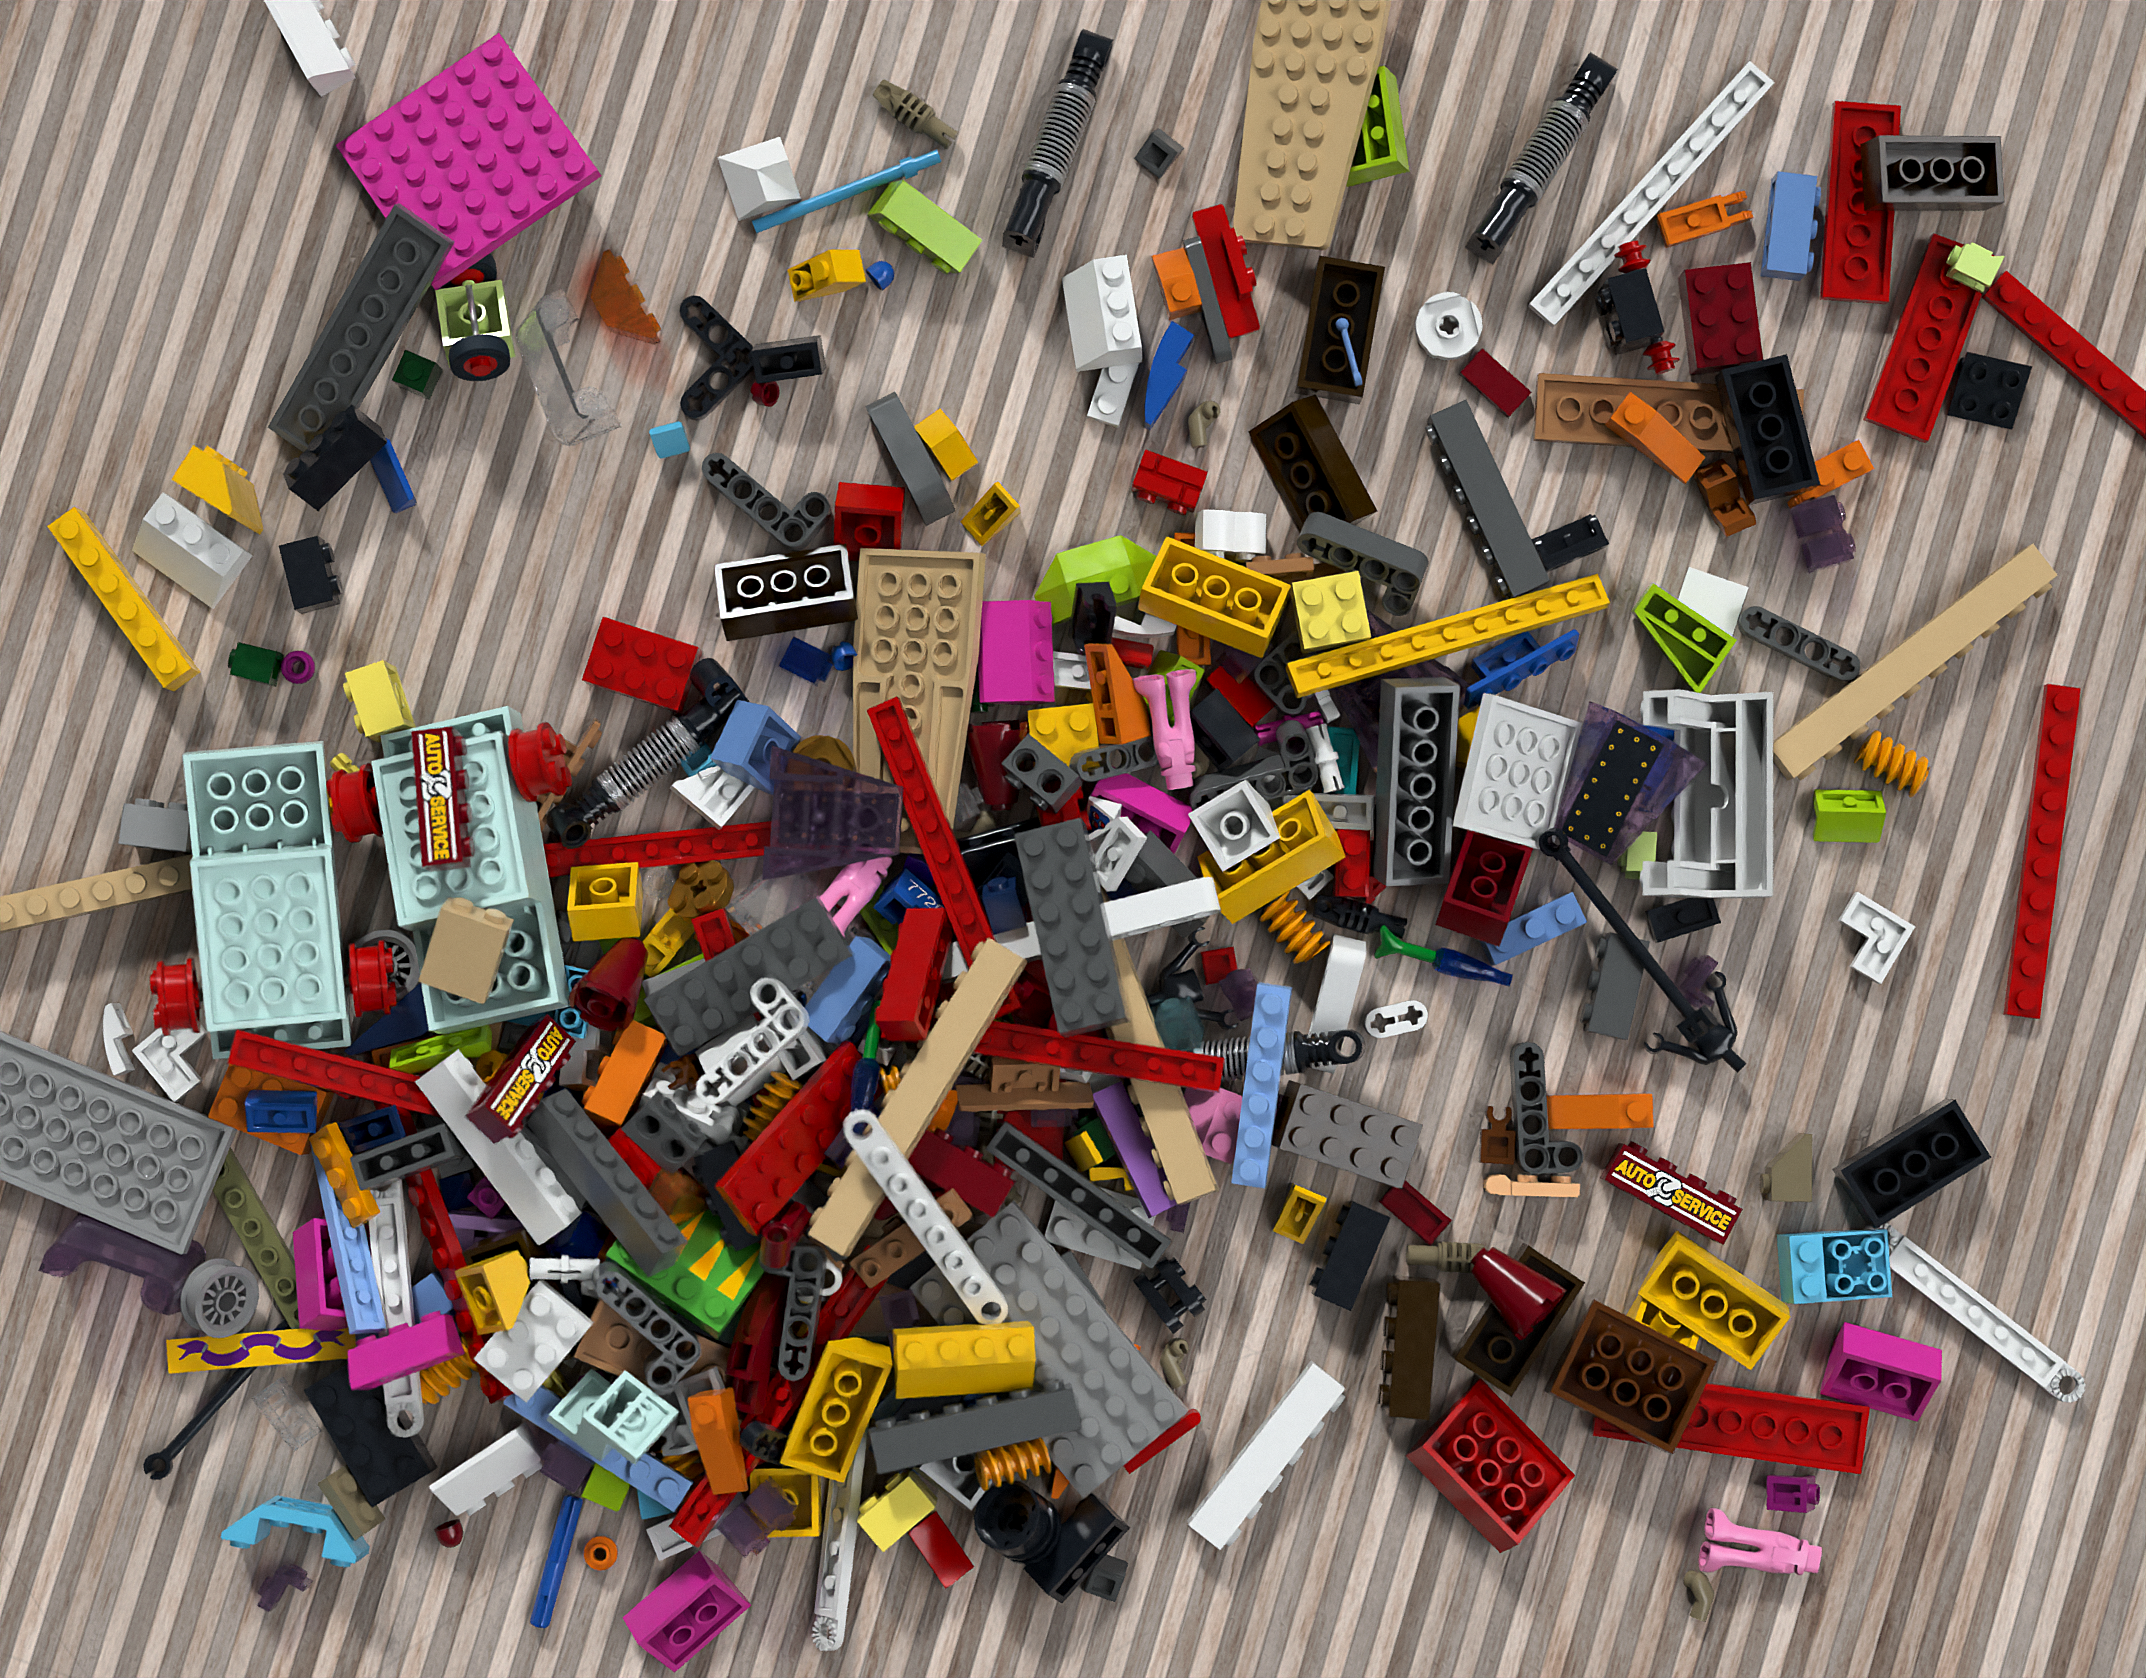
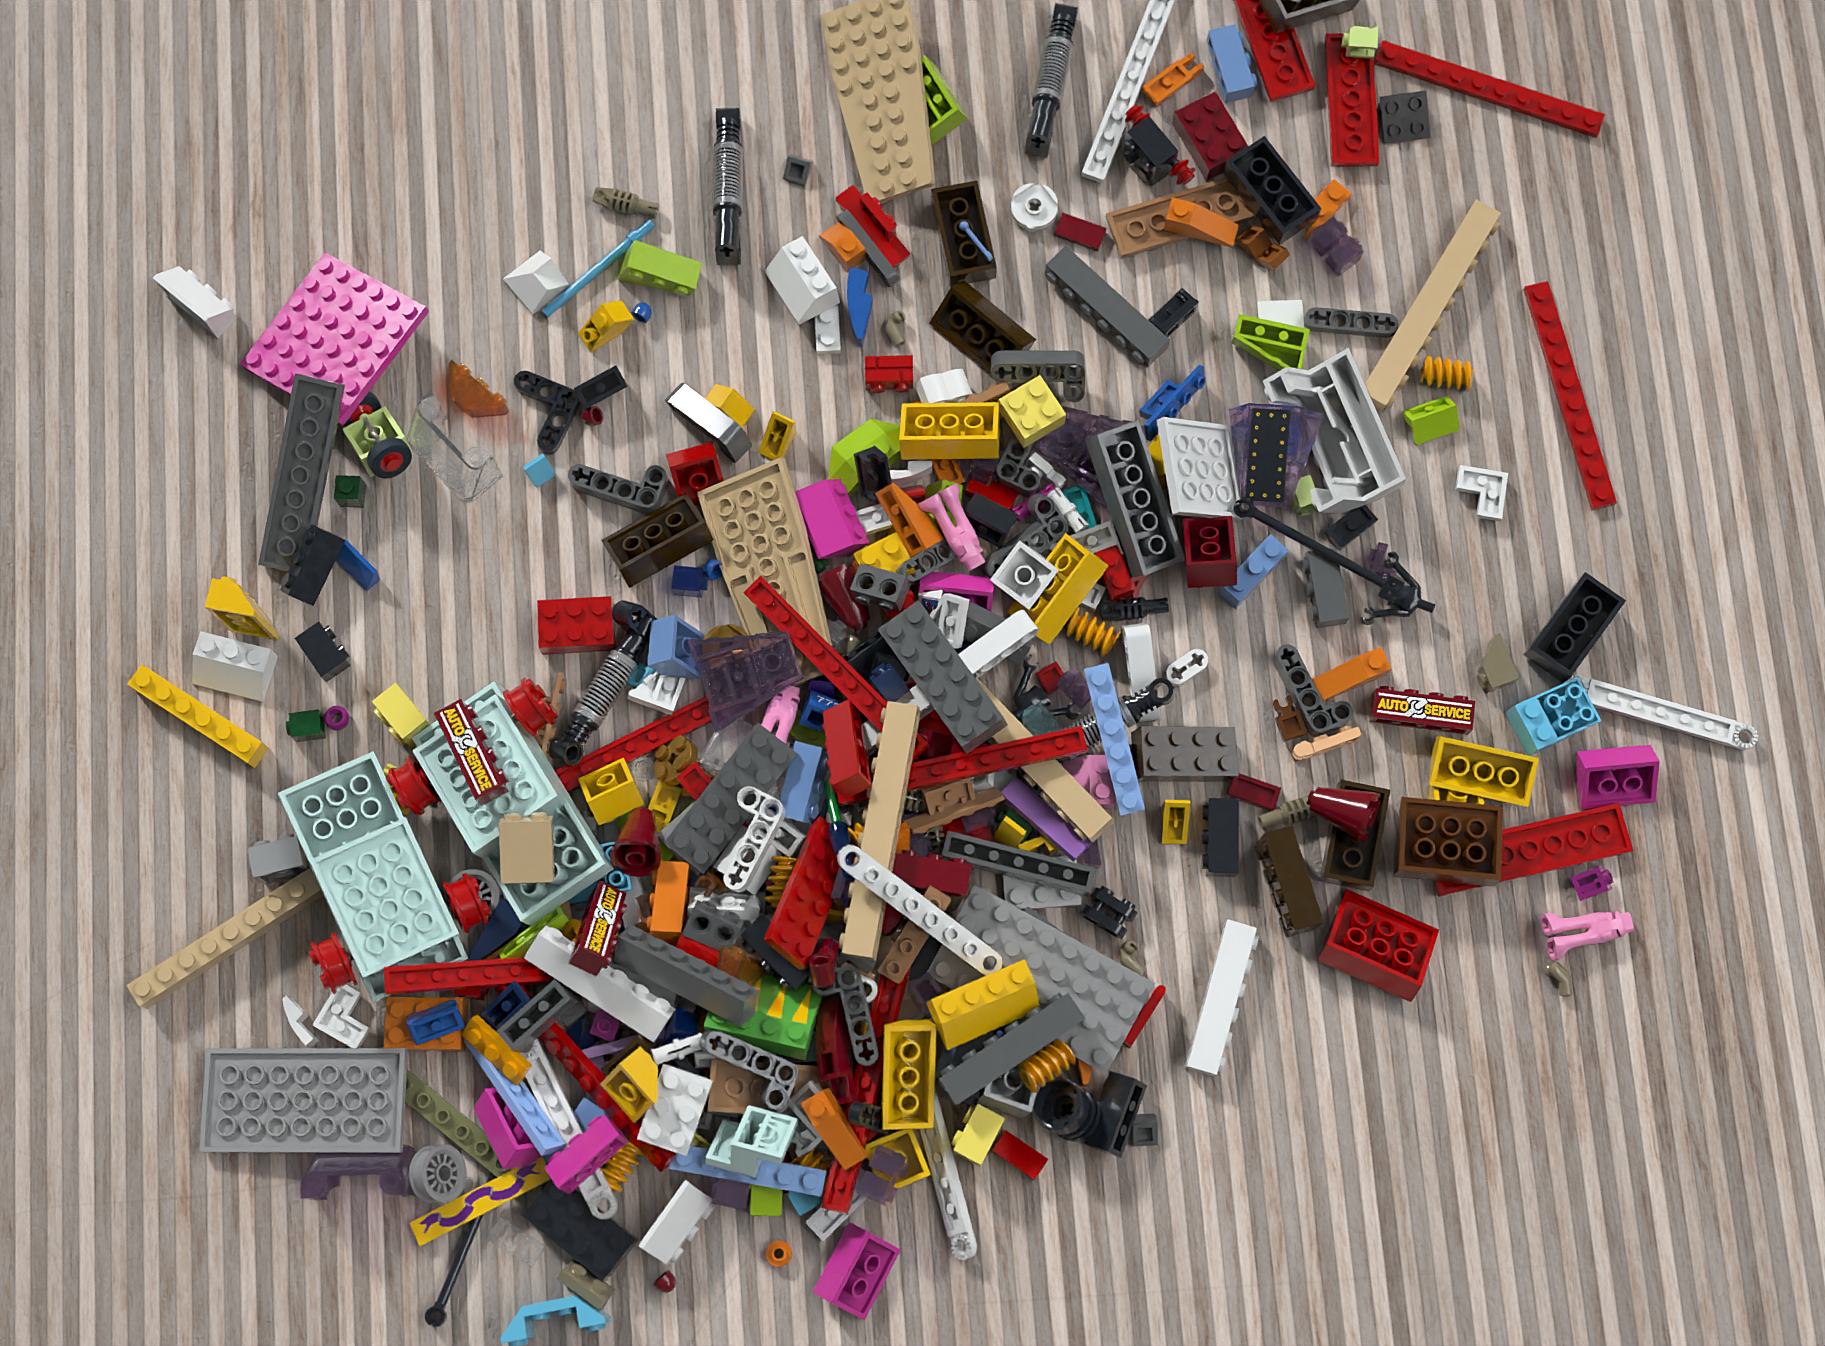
camera: 20 degrees left, 10 degrees down
(556, 1561) = (749, 1272): blue axle -> none
(1443, 960) = (1202, 615): clear blue piece -> none
(1447, 635) = (1115, 399): yellow plate -> none

